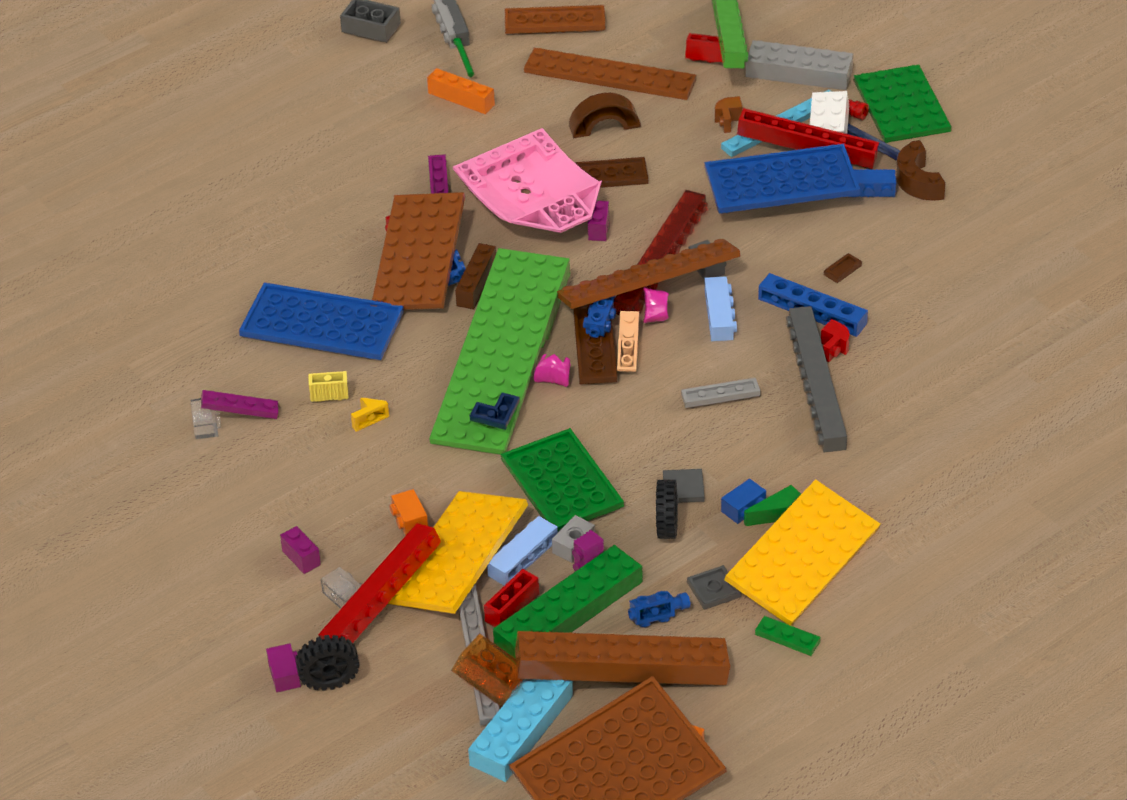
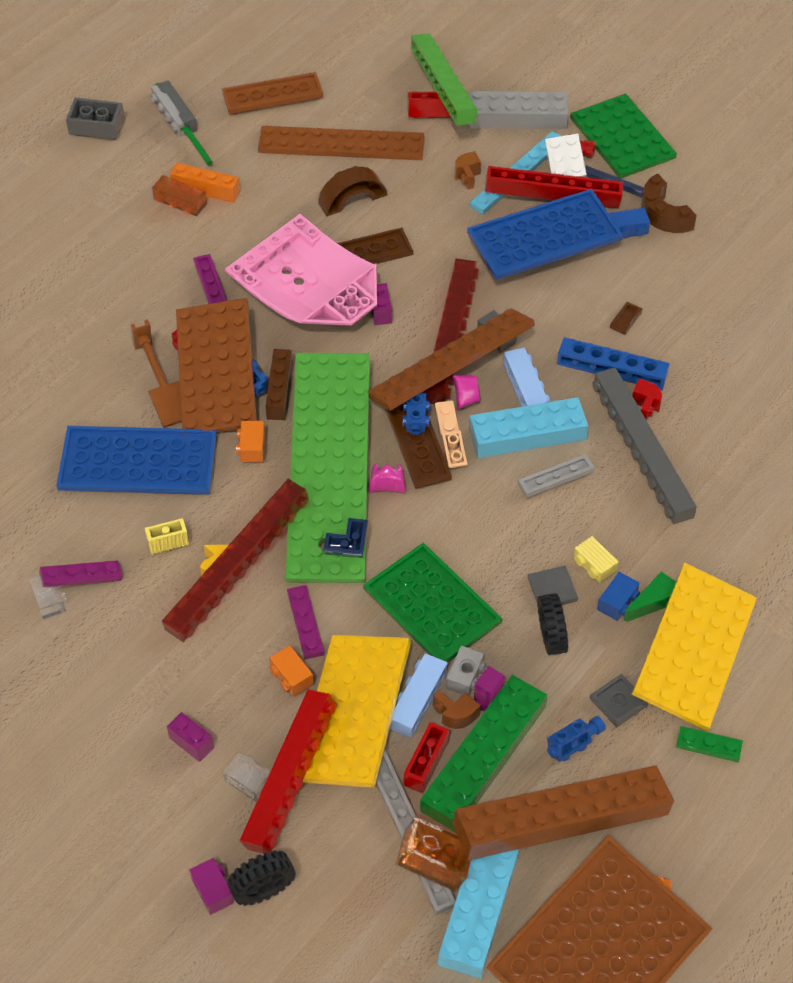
camera: 15 degrees left, 10 degrees up
(363, 273) = (167, 396): none -> dark orange piece
(386, 413) = (235, 560): none -> clear red brick
(432, 99) = (179, 195): none -> clear orange brick
(433, 320) = (251, 441): none -> orange brick
(437, 477) = (305, 622): none -> magenta plate
(553, 570) = (456, 714): none -> dark orange brick
(706, 346) = (528, 427): none -> medium azure brick
(732, 467) = (595, 559): none -> light yellow brick

